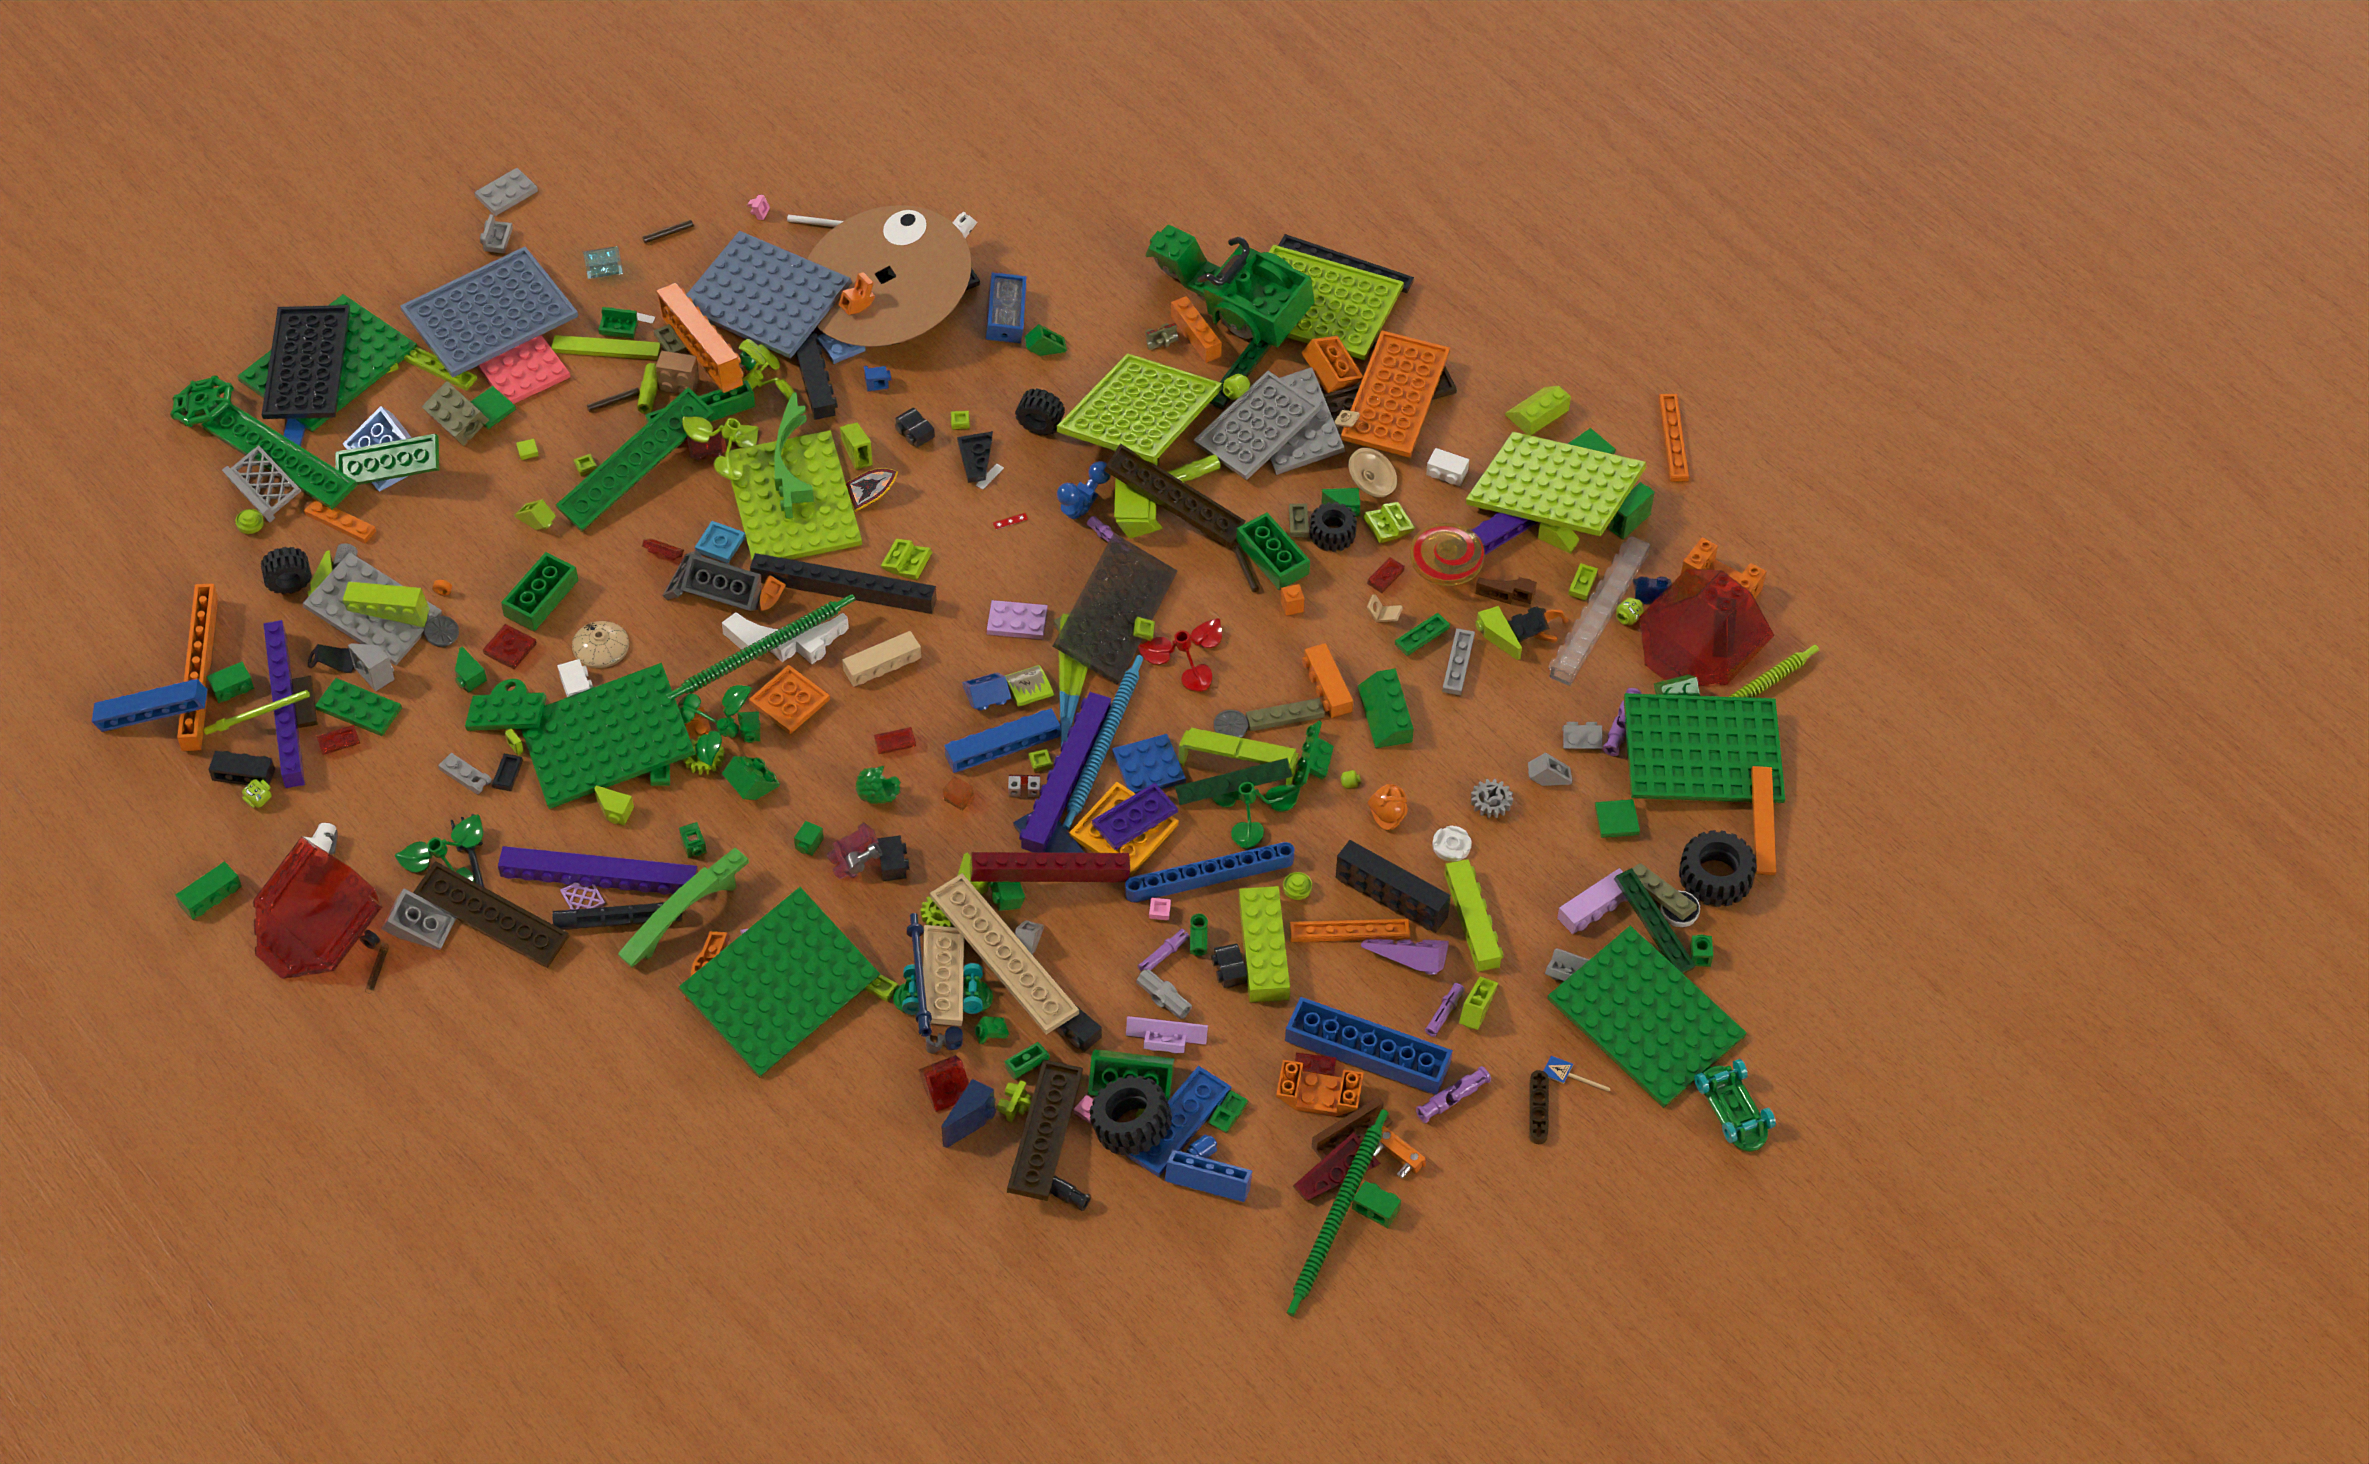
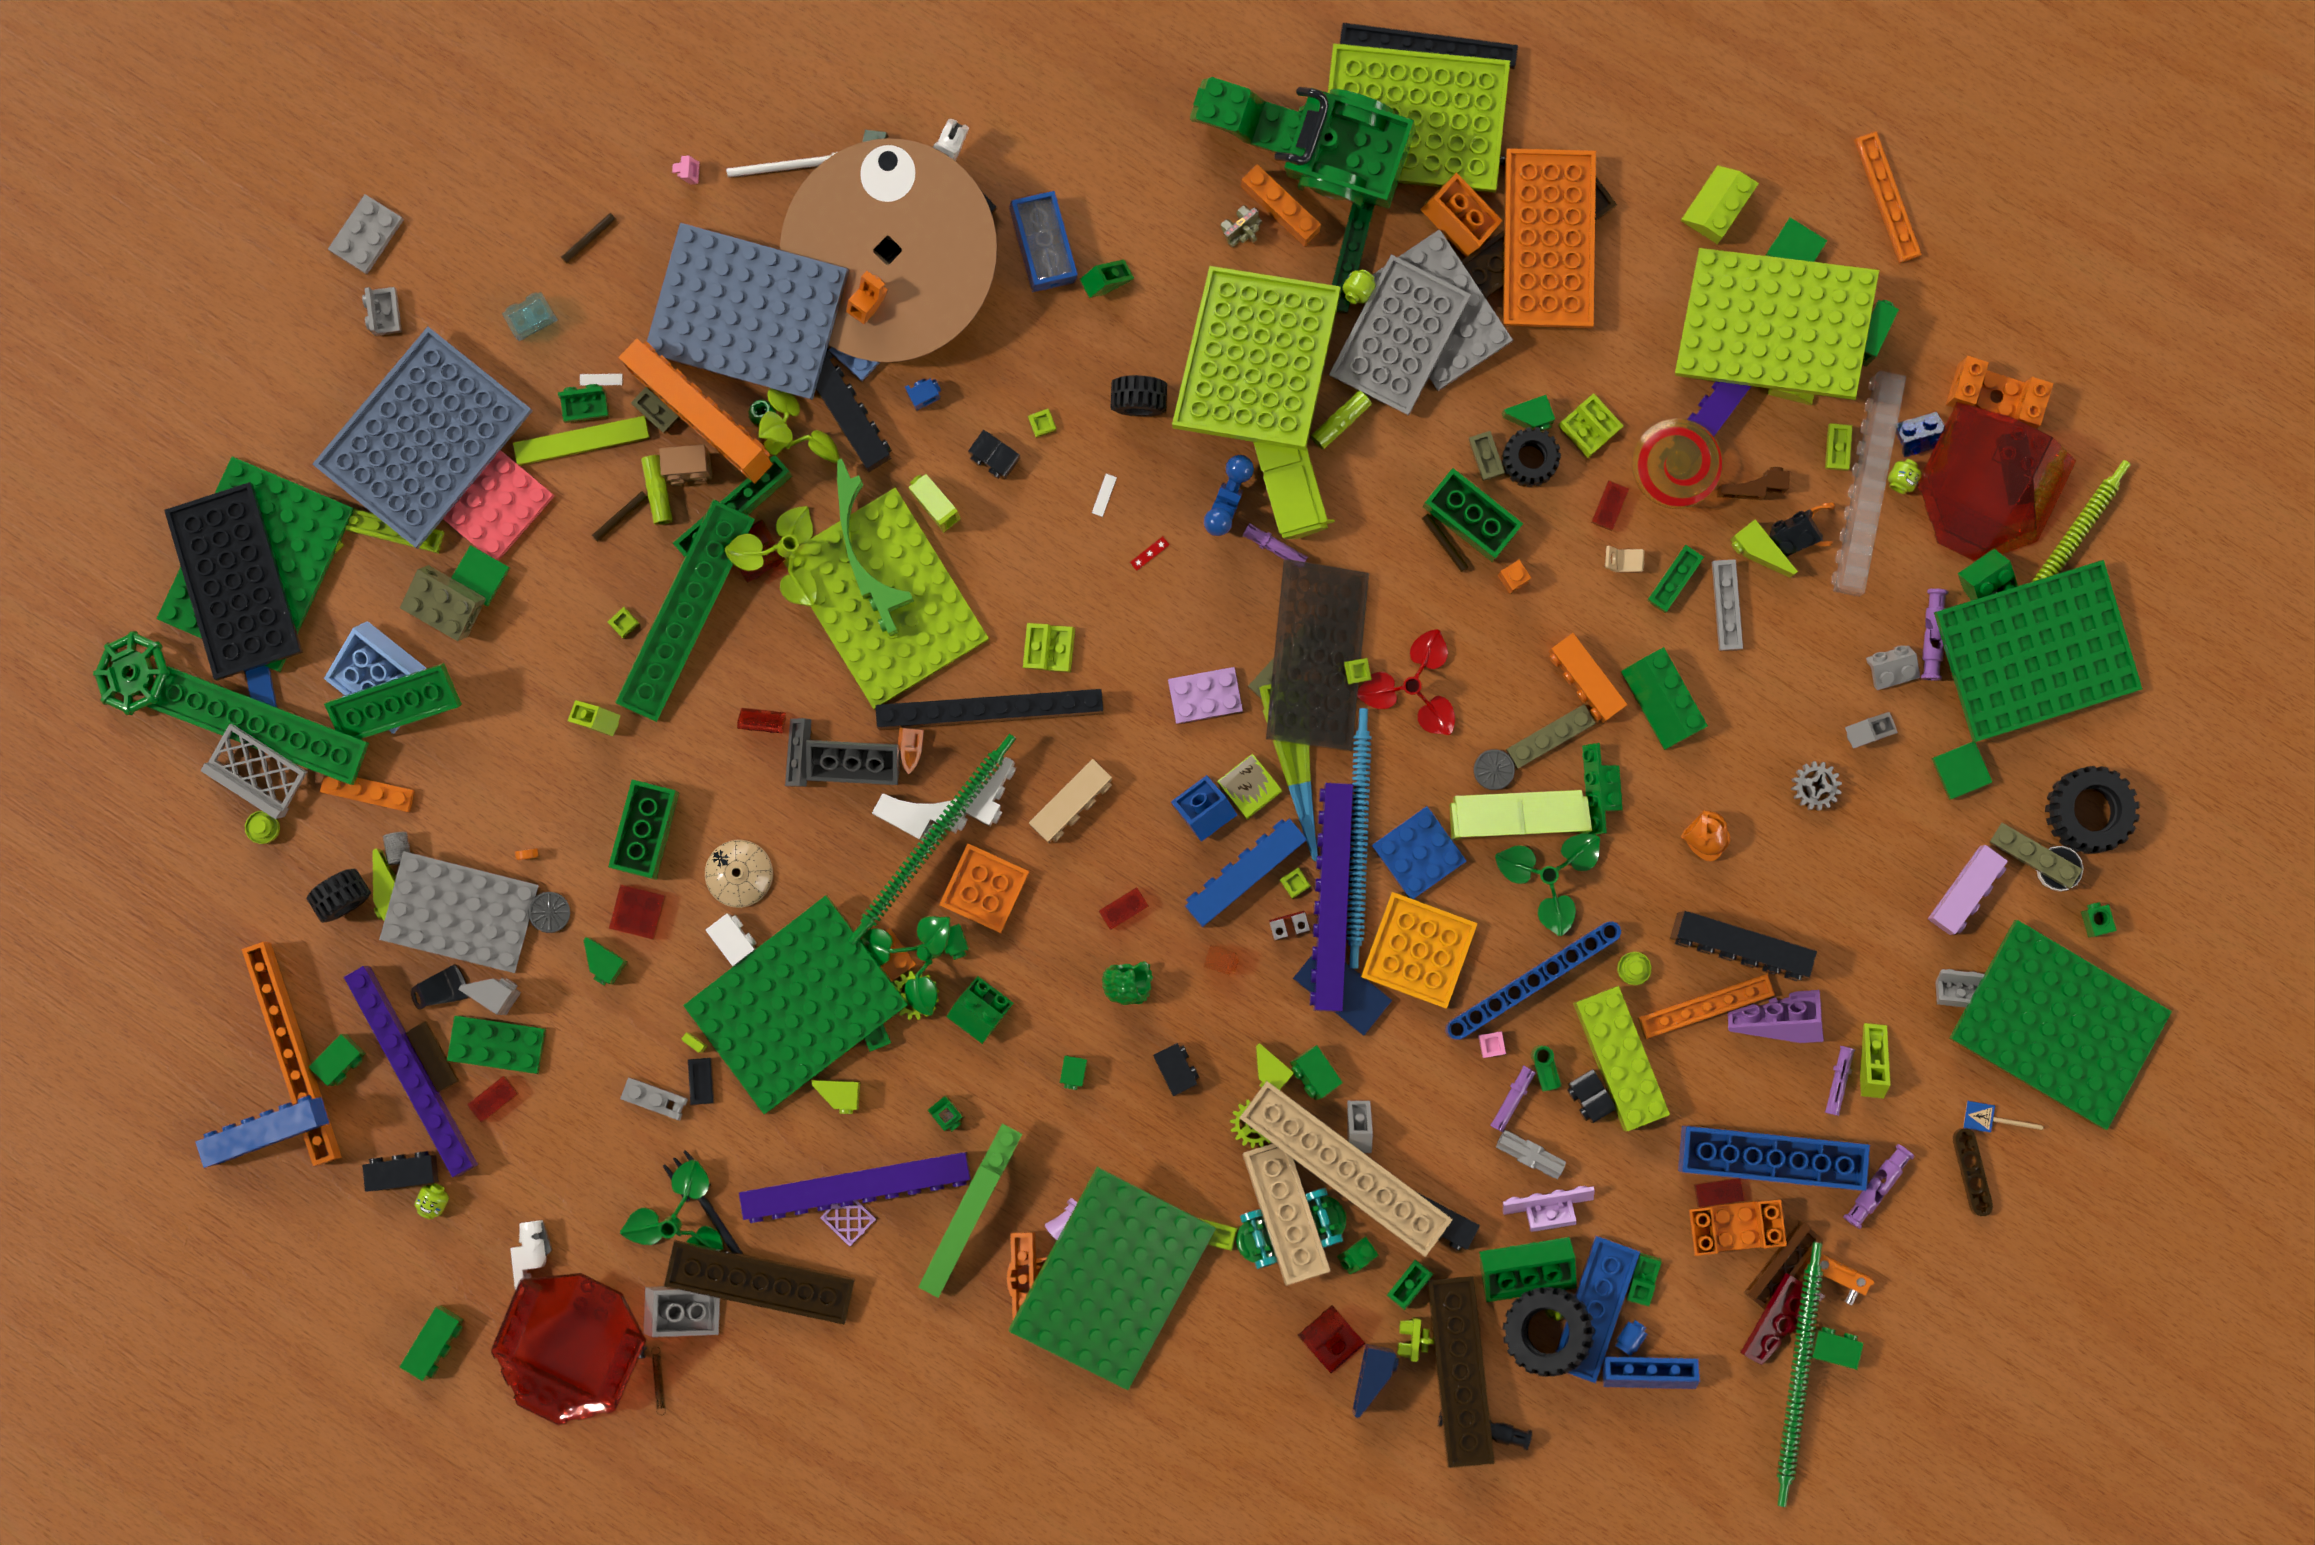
camera: 15 degrees left, 30 degrees up
(224, 724) = (355, 1119): lime bar -> none
(387, 602) = (476, 912): lime wedge -> none
(506, 708) = (668, 1001): green plate -> none
(527, 449) = (546, 621): lime tile -> none
(605, 916) = (892, 1239): black piece -> none
(720, 542) = (824, 690): dark azure plate -> none
(853, 853) = (1127, 1082): clear pink hips -> none
(870, 486) = (972, 559): shield -> none
(923, 1017) = (1290, 1288): dark blue bar -> none
(952, 1039) = (1316, 1283): leg -> none
(975, 455) = (1079, 474): black wing -> none
(1049, 867) = (1361, 1044): dark red brick -> none
(1083, 1108) = (1492, 1321): bright pink plate -> none
(1134, 816) = (1428, 934): dark purple tile -> none
(1174, 495) = (1339, 479): dark brown plate -> none
(1231, 781) = (1528, 860): dark green plate -> none
(1346, 419) = (1505, 298): tan bracket -> none
(1350, 779) = (1649, 802): lime piece -> none
(1372, 472) = (1555, 365): tan dish -> none
(1447, 467) = (1638, 326): white brick -> none
(1451, 843) = (1786, 856): white tile -> none
(1473, 915) = (1838, 949): lime brick -> none
(1654, 921) = (2041, 904): dark green plate -> none
(1734, 1106) = (2179, 1108): green piece -> none
(1763, 820) = (2126, 725): orange tile -> none

